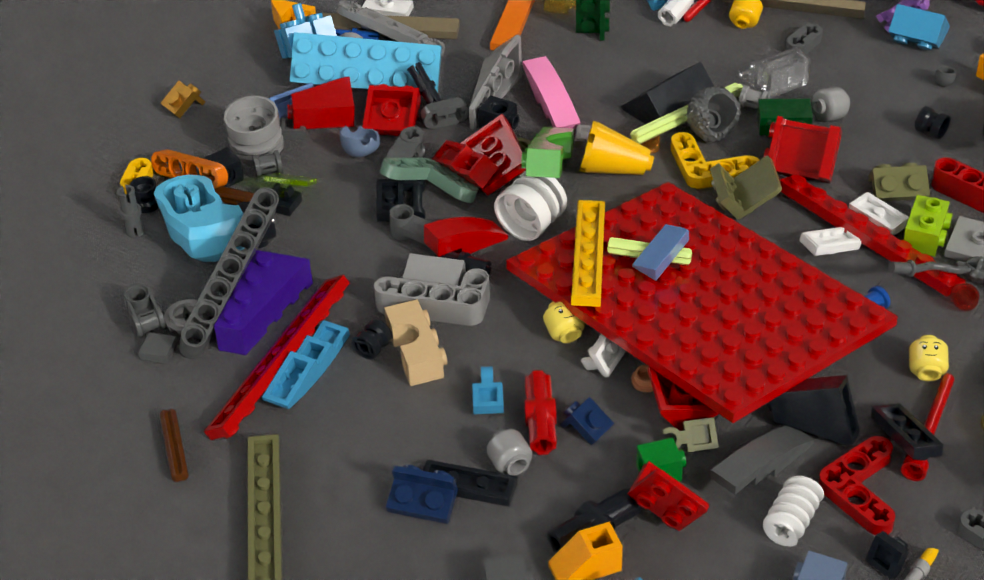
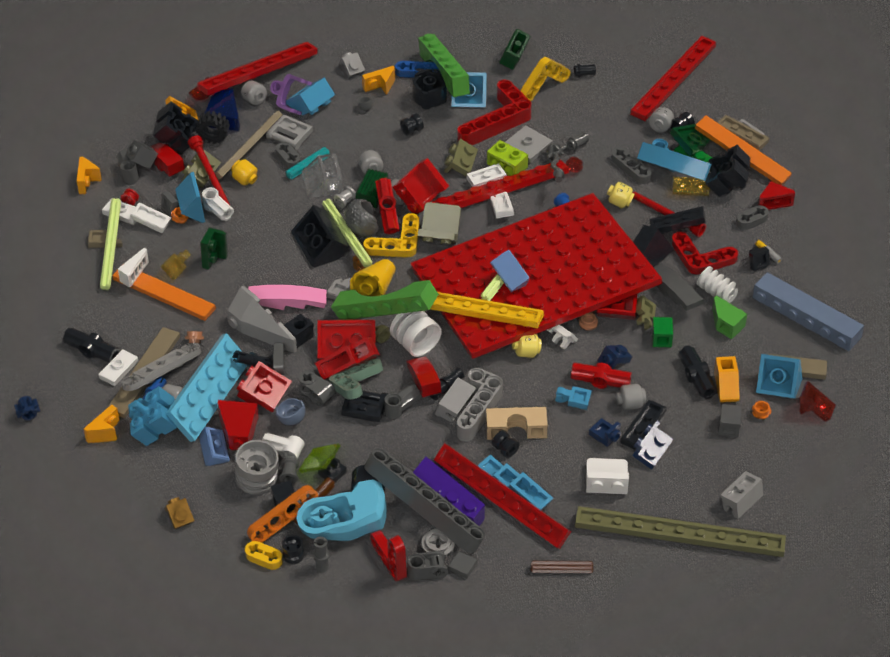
camera: 75 degrees left, 5 degrees up
(169, 264) = (391, 553): none -> red beam
(305, 150) = (286, 447): none -> white piece
(348, 457) = (607, 476): none -> white bracket
(430, 437) = (605, 432): none -> dark blue bracket
(454, 43) = (194, 336): none -> nougat plate
(666, 497) = (695, 334): red bracket -> none
(728, 537) = (728, 318): none -> bright green slope
(748, 130) = (388, 215): none -> red piece
(817, 62) = (297, 169): none -> teal axle
(853, 30) = (292, 128): none -> light grey plate

